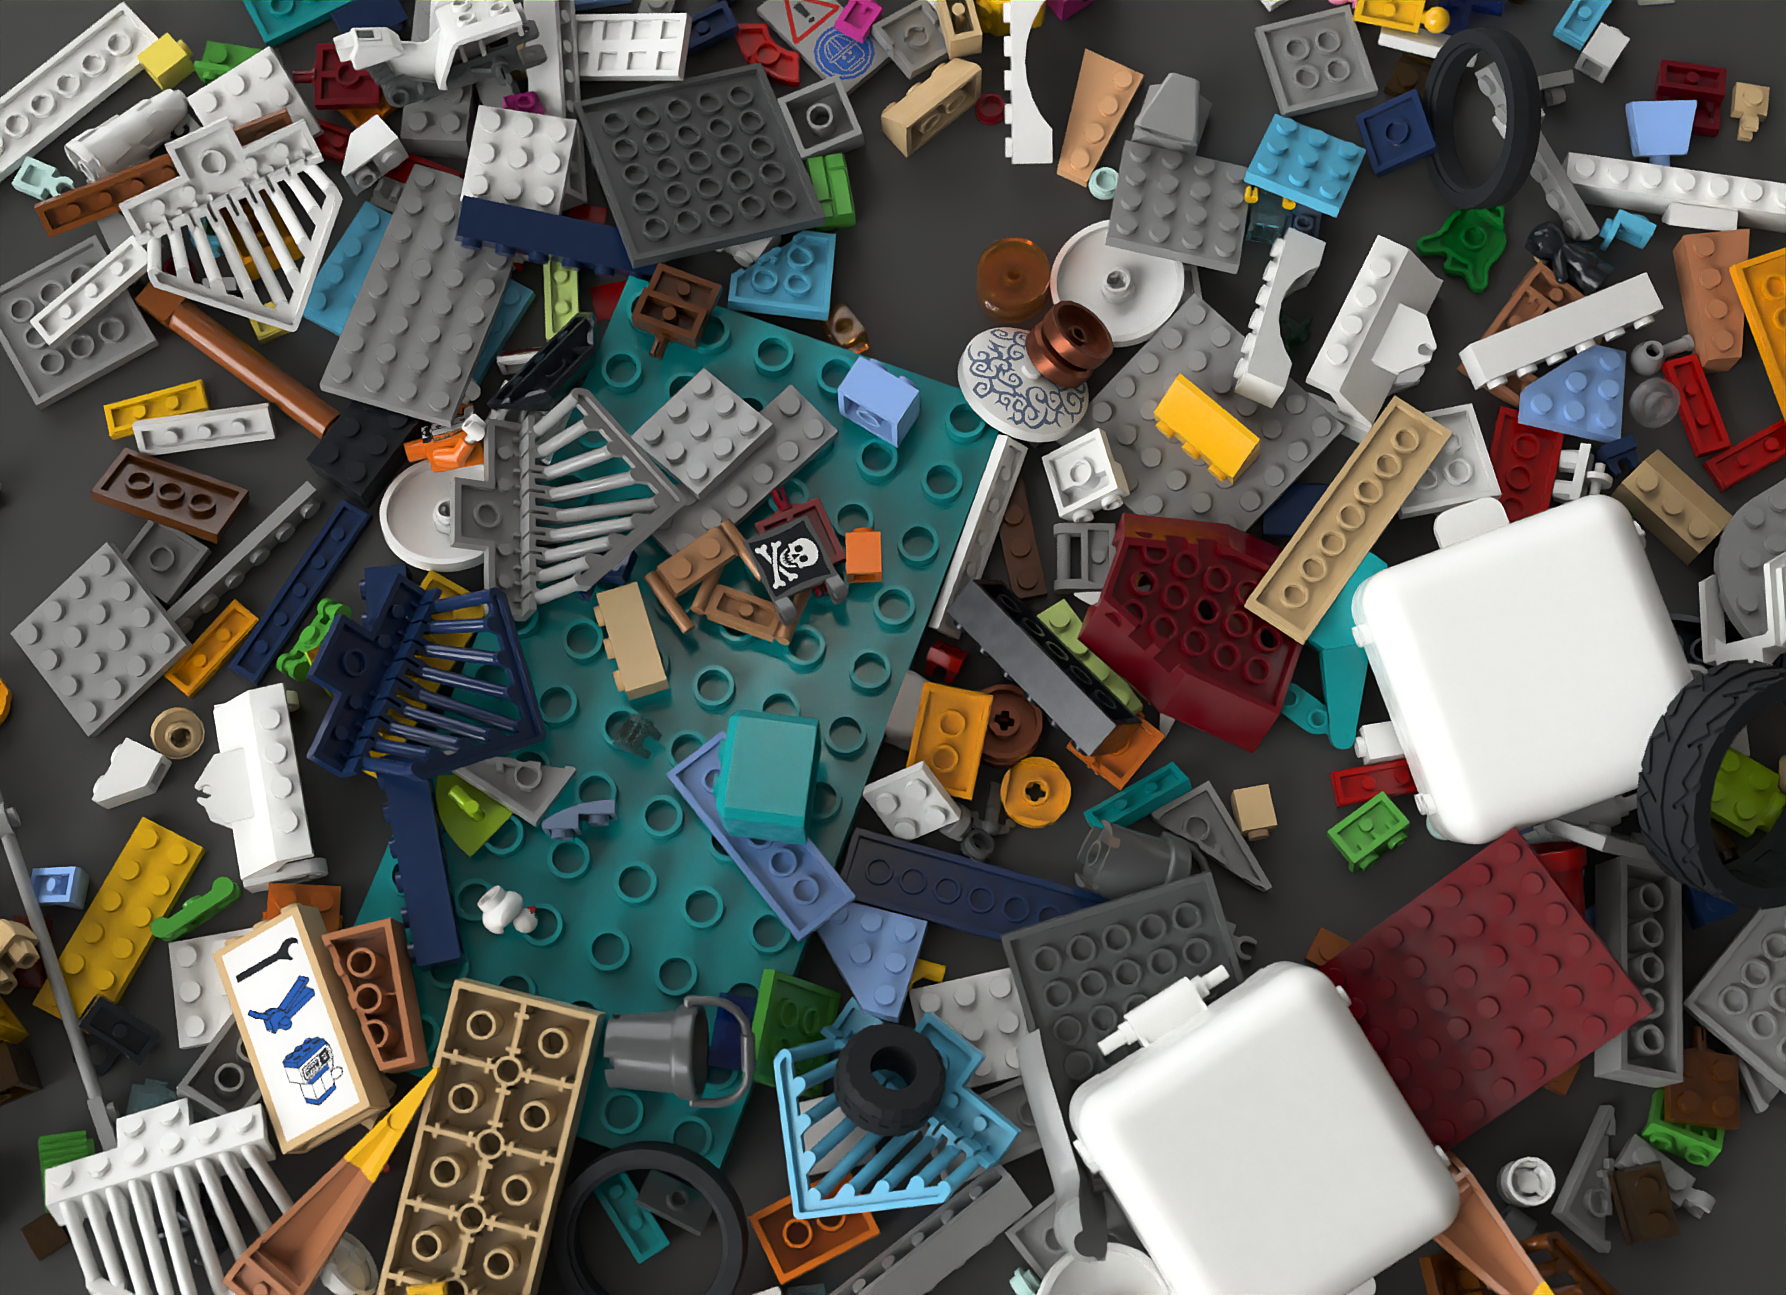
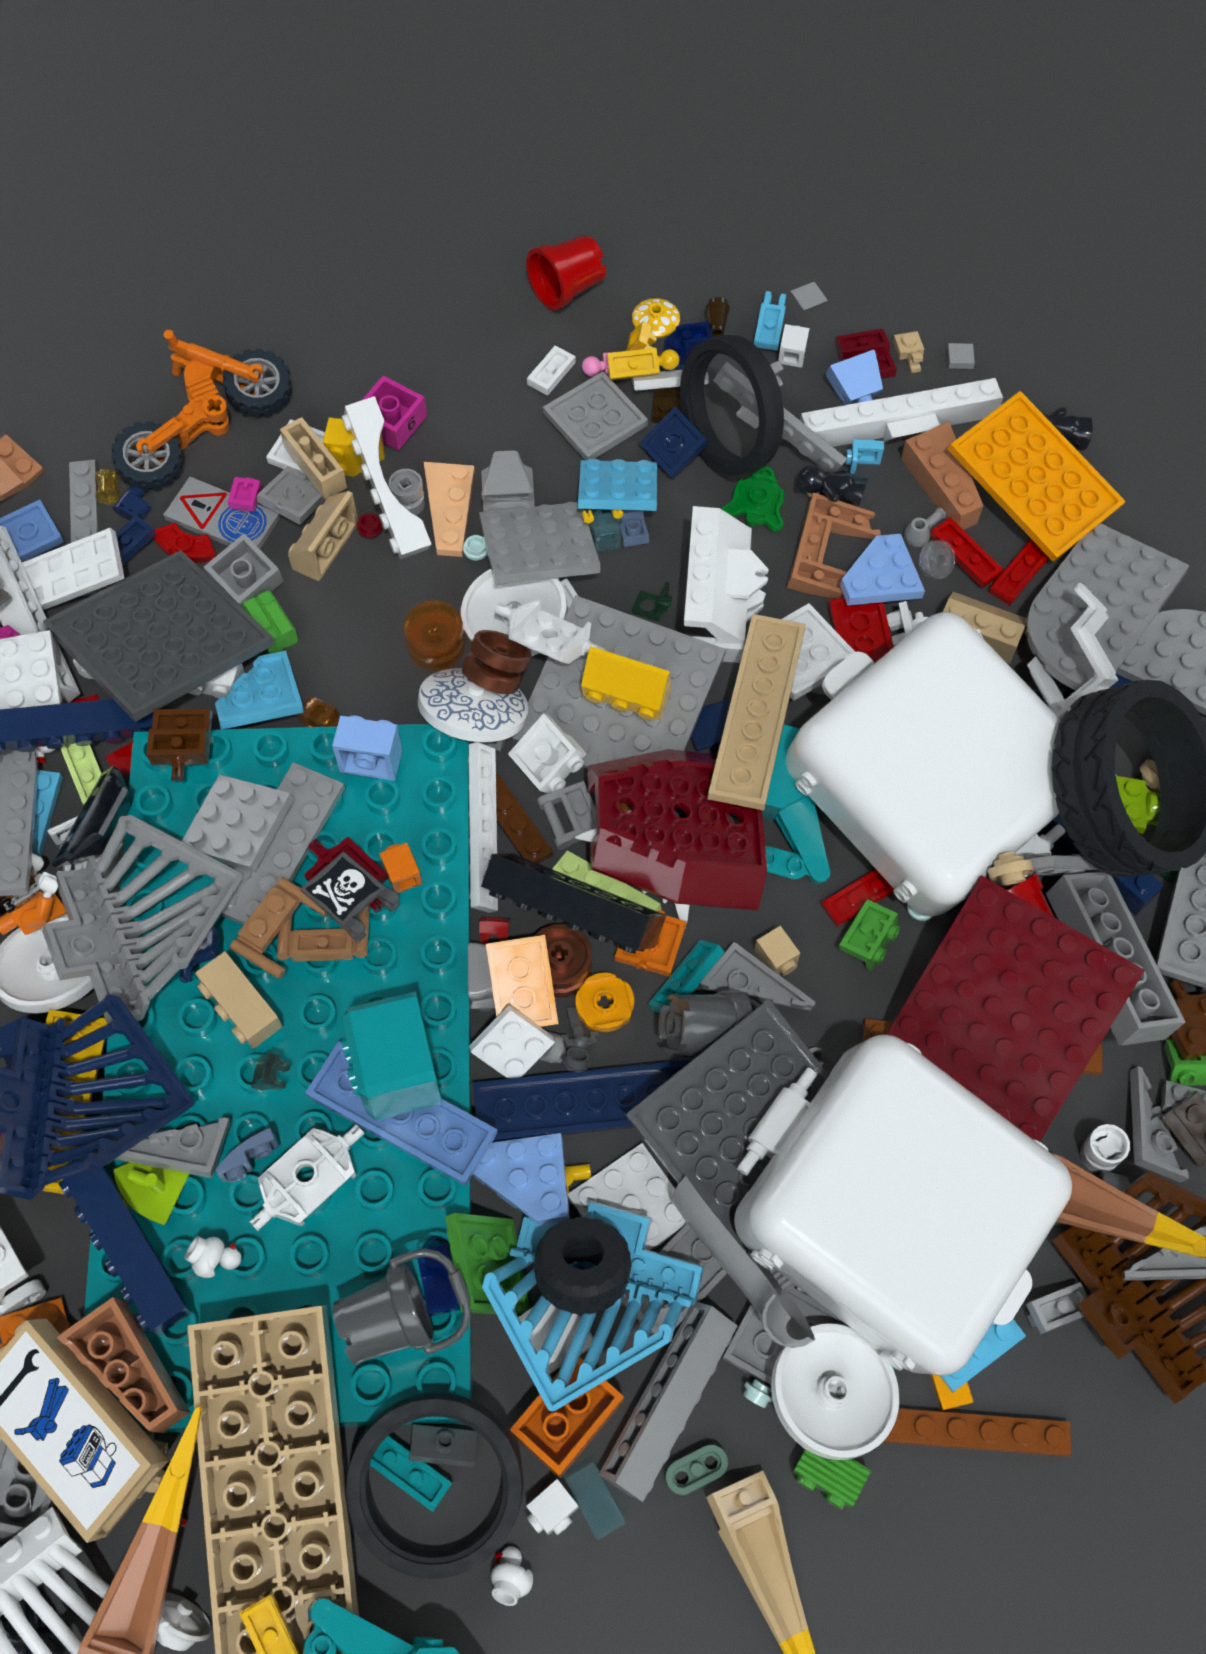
camera: 25 degrees left, 10 degrees down
(665, 865) = (296, 1200): none -> white plate
(1050, 83) = (408, 490): none -> light grey wheel
(1130, 311) = (532, 626): none -> white plate
(1266, 364) = (649, 622): white arch -> none
(1378, 743) = (849, 866): white brick -> none
(1551, 832) = (1010, 869): none -> tan plate
(1561, 331) = (850, 532): white brick -> none
(1618, 451) = (926, 601): dark blue tile -> none

